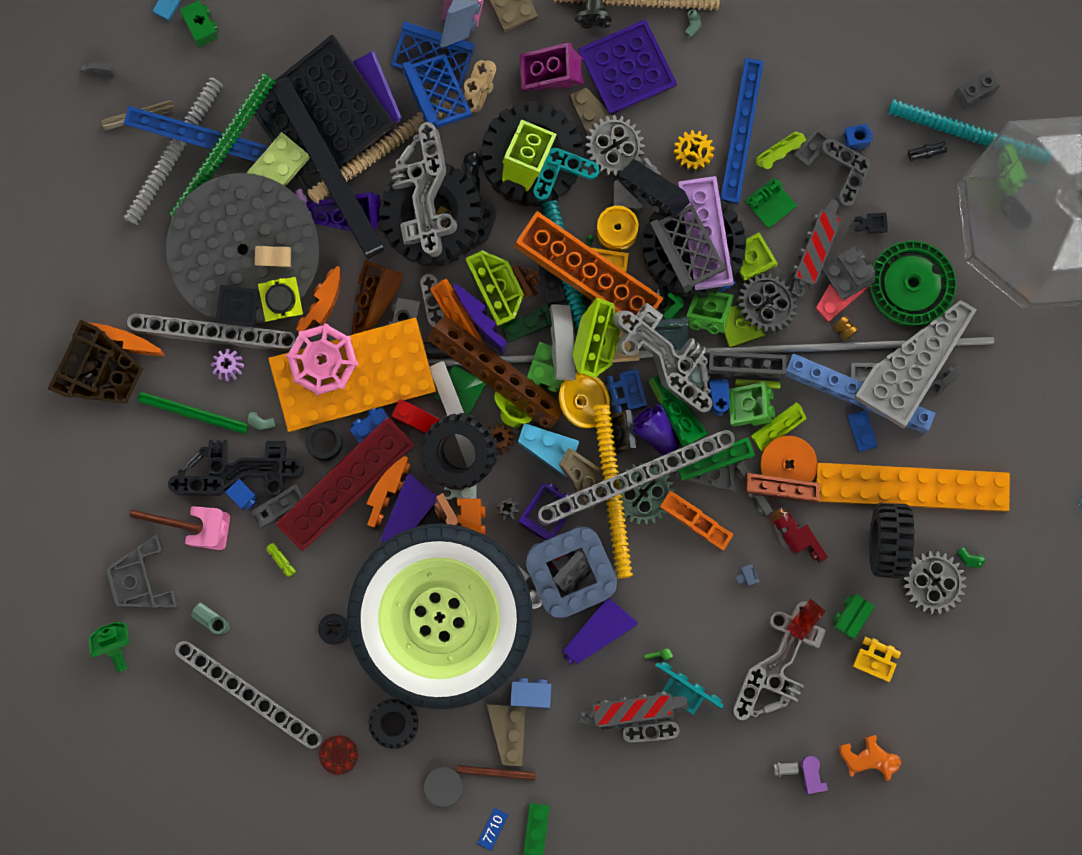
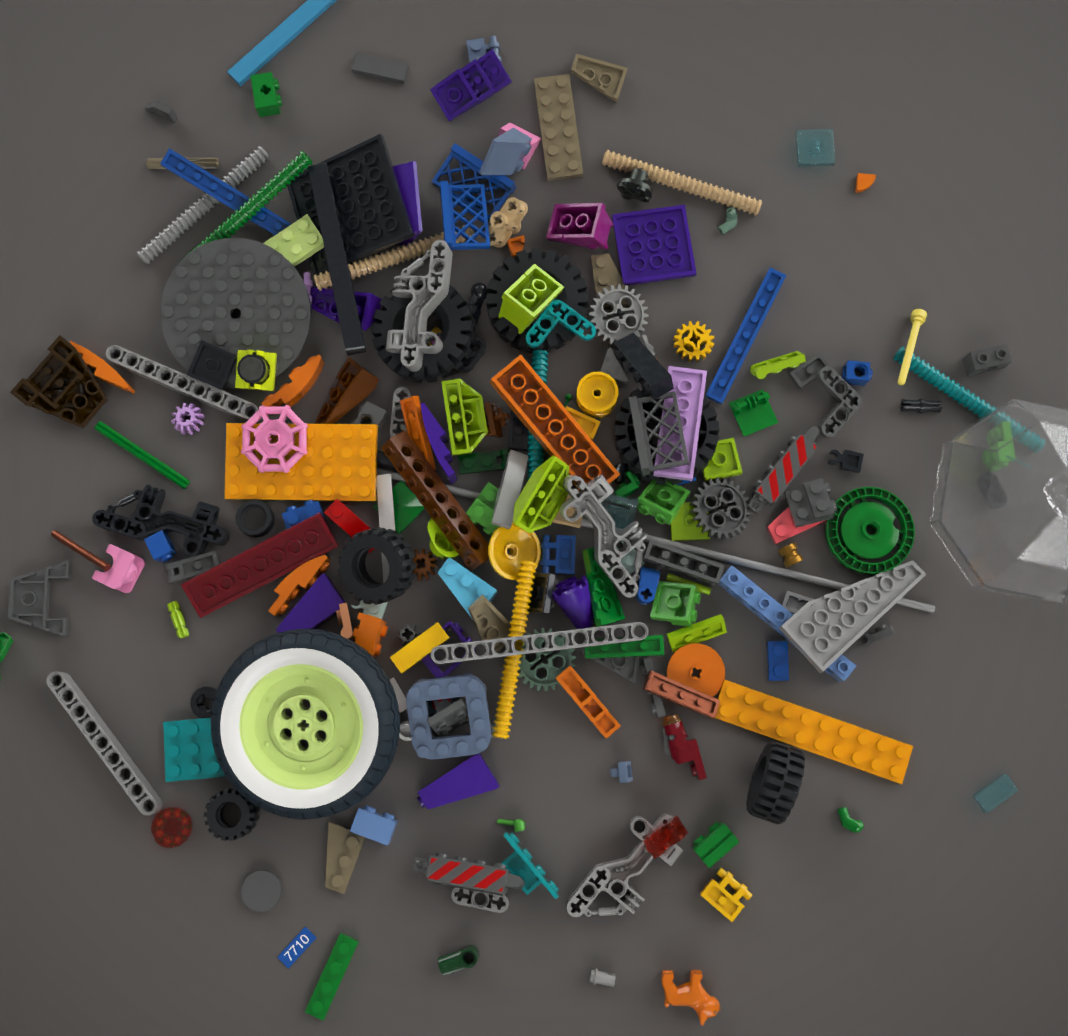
camera: 20 degrees right, 0 degrees up
(209, 619) = (91, 656): sand green piece -> none
(258, 423) = (200, 483): sand green arm -> none
(272, 256) = (259, 327): tan axle -> none
(335, 677) = (189, 750): none -> teal plate
(493, 105) = (515, 245): none -> orange tile
(496, 772) = (317, 892): copper bar -> none
(523, 516) = (419, 647): none -> yellow tile
(645, 794) = (456, 960): none -> dark green piece
(810, 773) = (626, 986): medium lavender leg -> none
(900, 67) = (917, 318): none -> light yellow piece
(948, 571) = (822, 827): light grey gear -> none

